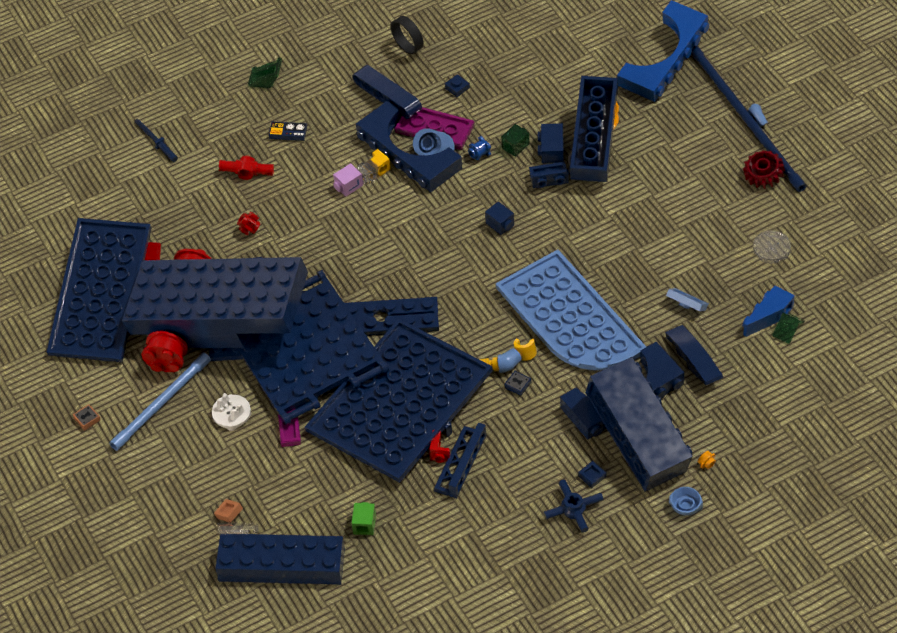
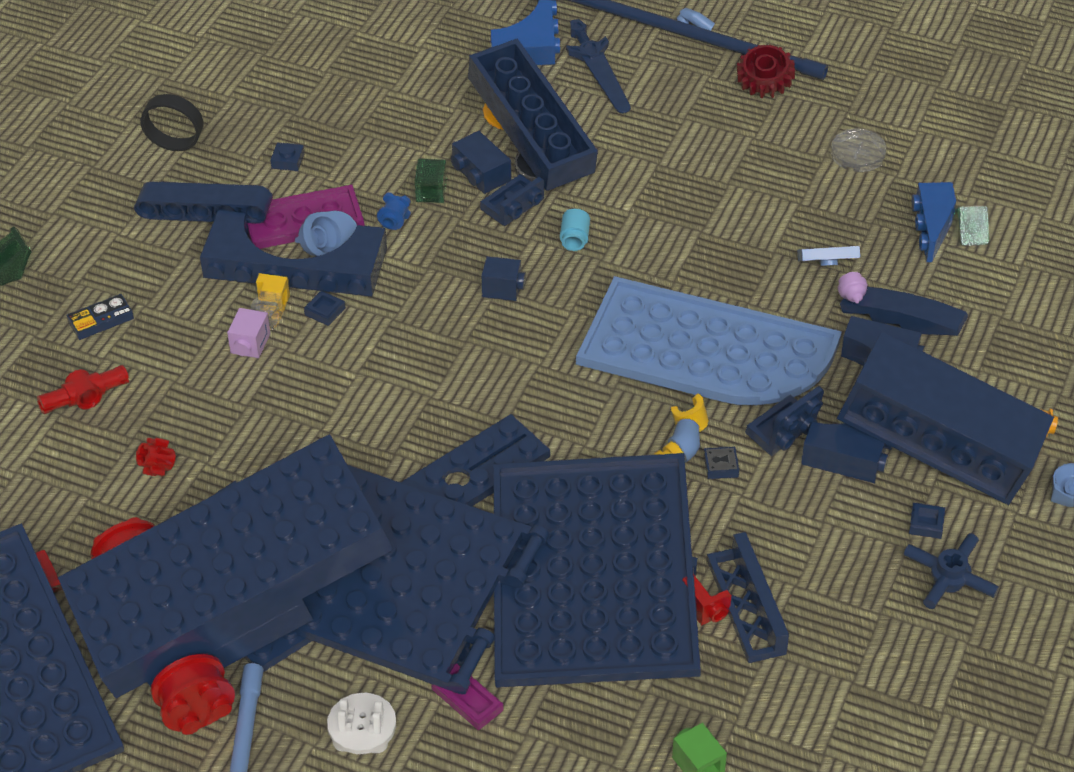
camera: 40 degrees left, 5 degrees down
(399, 186) = (324, 308): none -> dark blue tile
(564, 210) = (574, 229): none -> medium azure brick
(564, 380) = (785, 421): none -> dark blue bracket
(675, 326) = (852, 287): none -> lavender plate
(678, 108) = (593, 55): none -> dark blue sword

